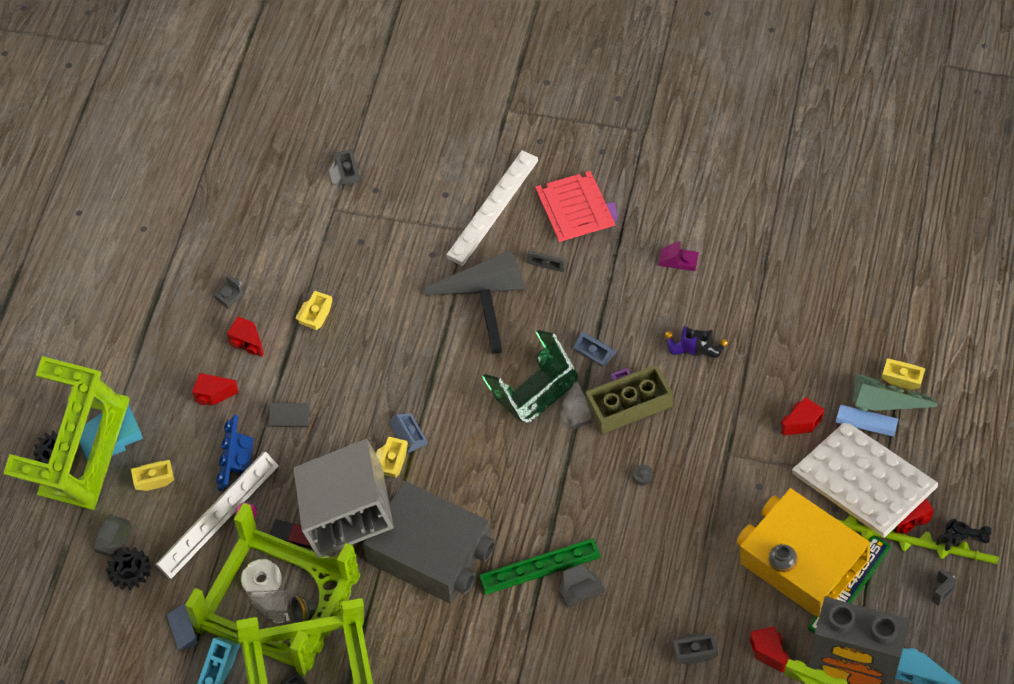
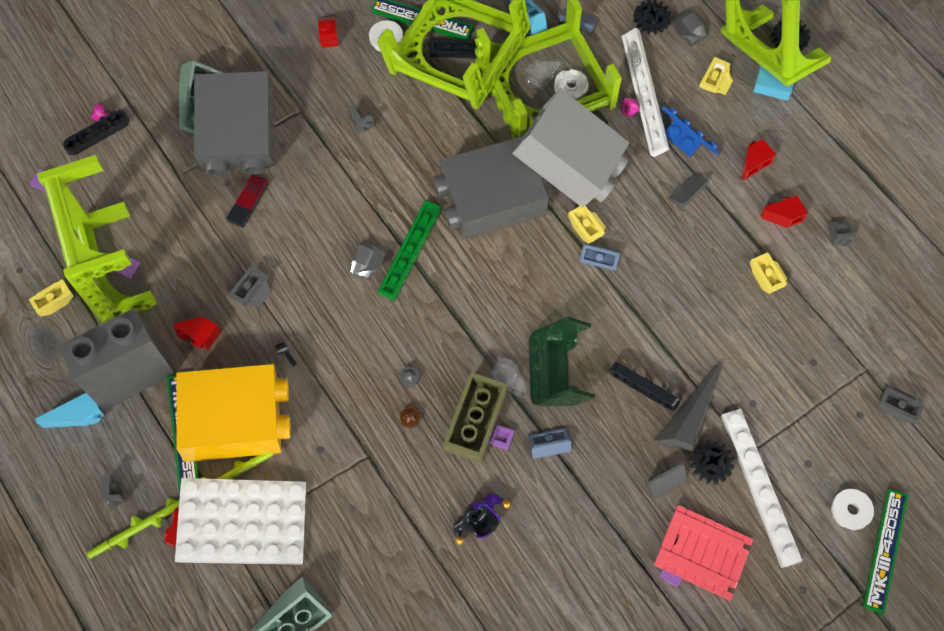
camera: 130 degrees right, 10 degrees up
(302, 609) = (521, 86): dark grey piece -> none
(454, 140) = (861, 501): none -> white tile
(464, 115) = (885, 551): none -> tile
(506, 239) = (708, 455): none -> black gear
(672, 447) = (409, 417): none -> reddish brown tile
(677, 258) = (573, 586): magenta slope -> none
(716, 579) = (281, 349): none -> black hand
(782, 558) = (232, 380): dark grey piece -> none
(803, 419) = (335, 533): red slope -> none
(867, 420) = (279, 583): light blue tile -> none
(959, 531) = (135, 548): black piece -> none

